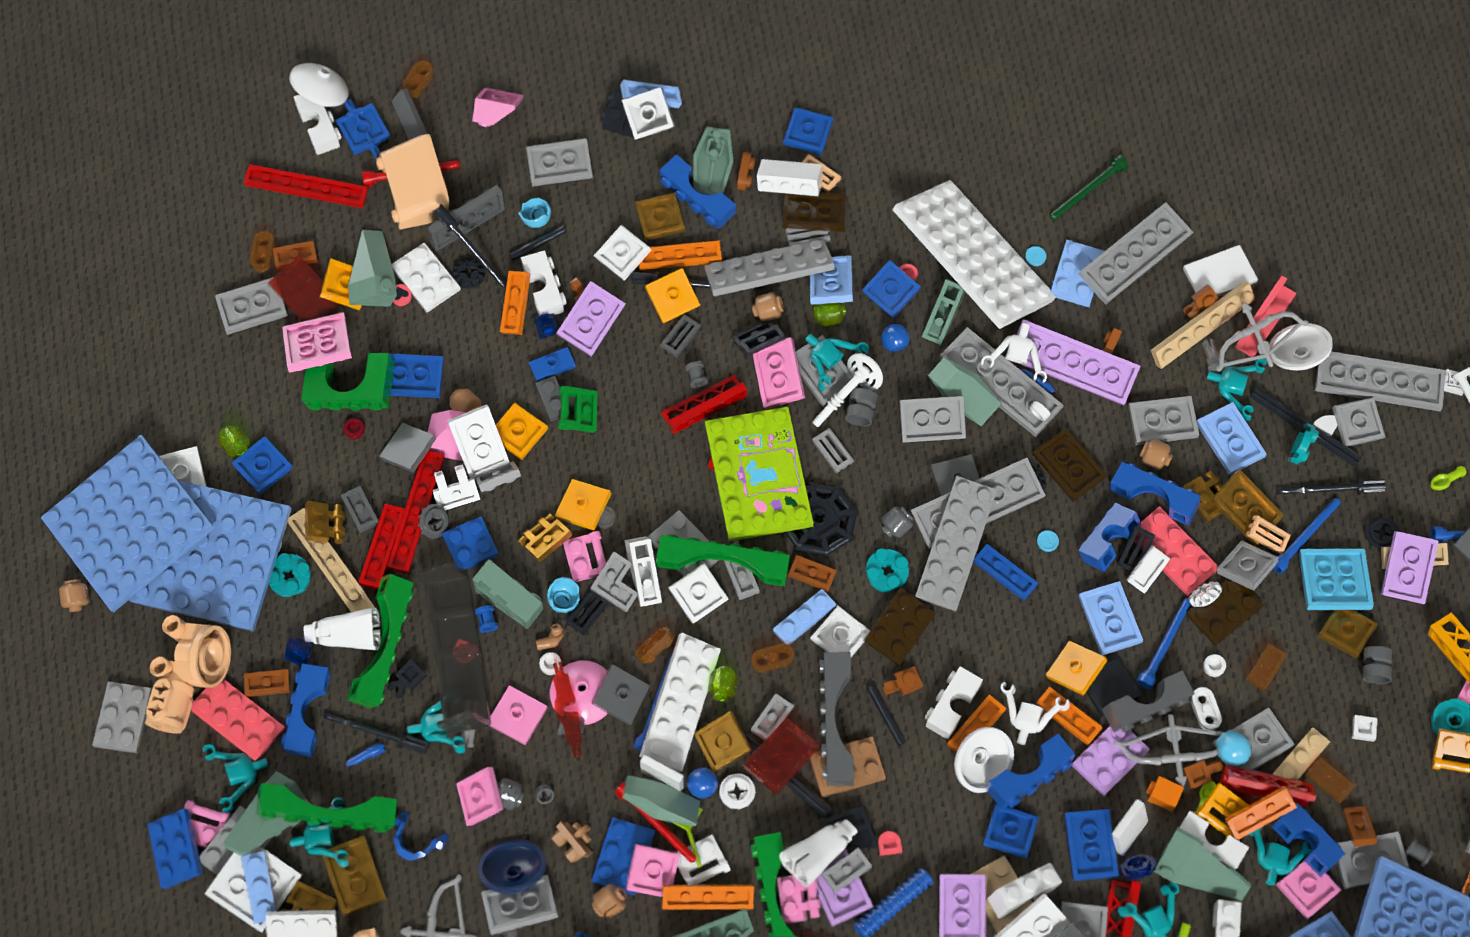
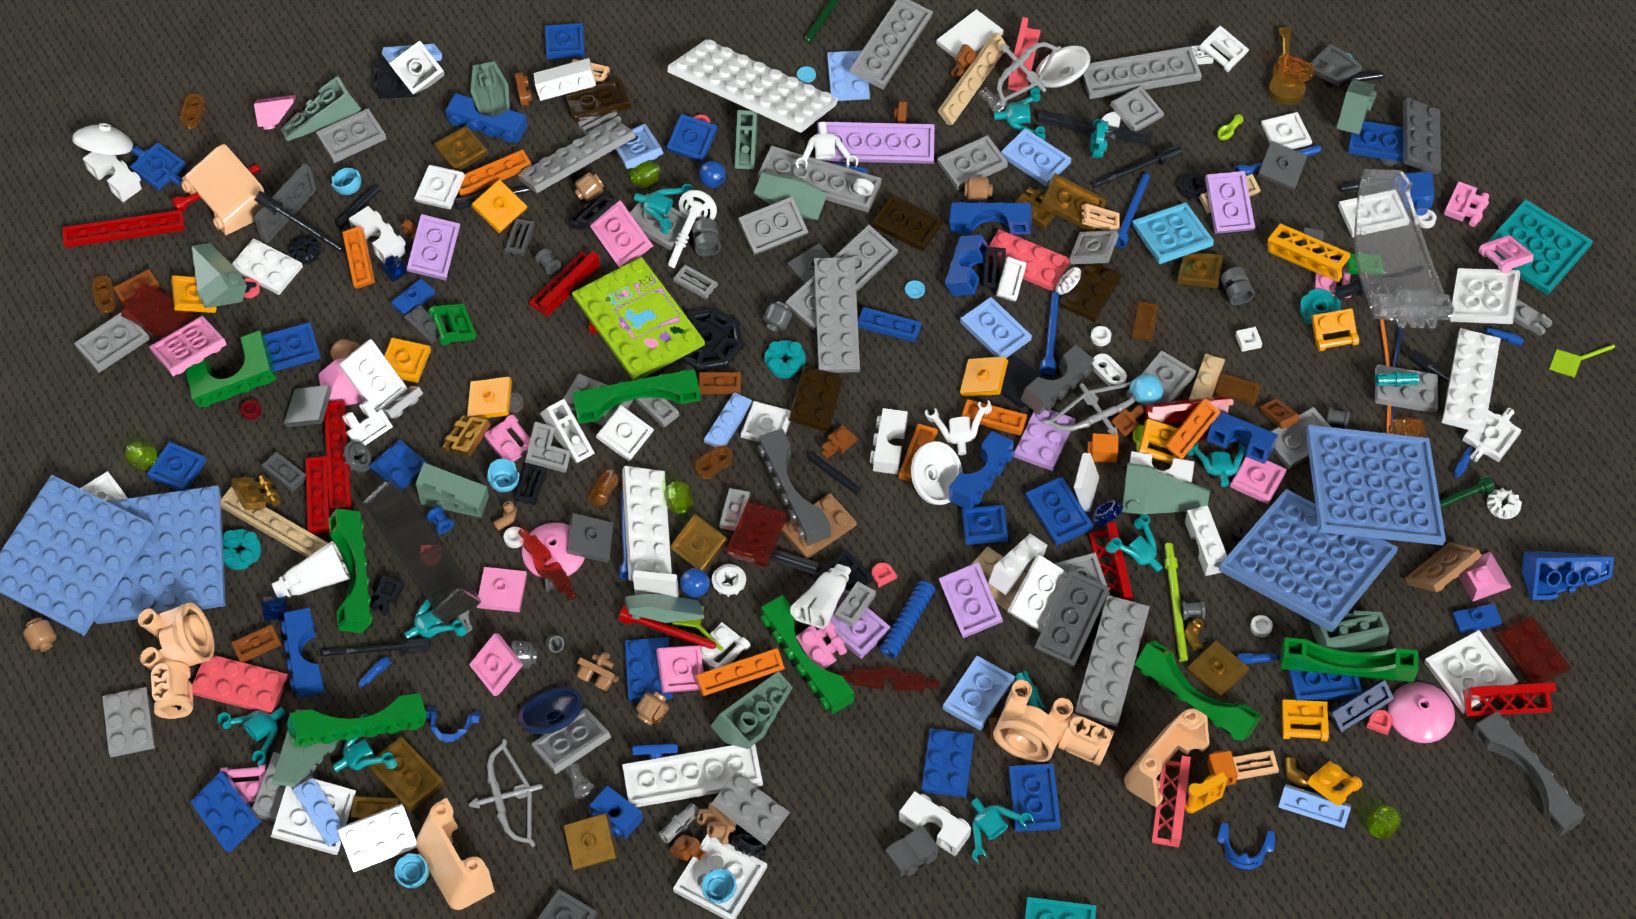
camera: 20 degrees left, 10 degrees down
(408, 114) = (194, 140): dark grey tile -> none
(549, 124) = (328, 108): none -> sand green wedge

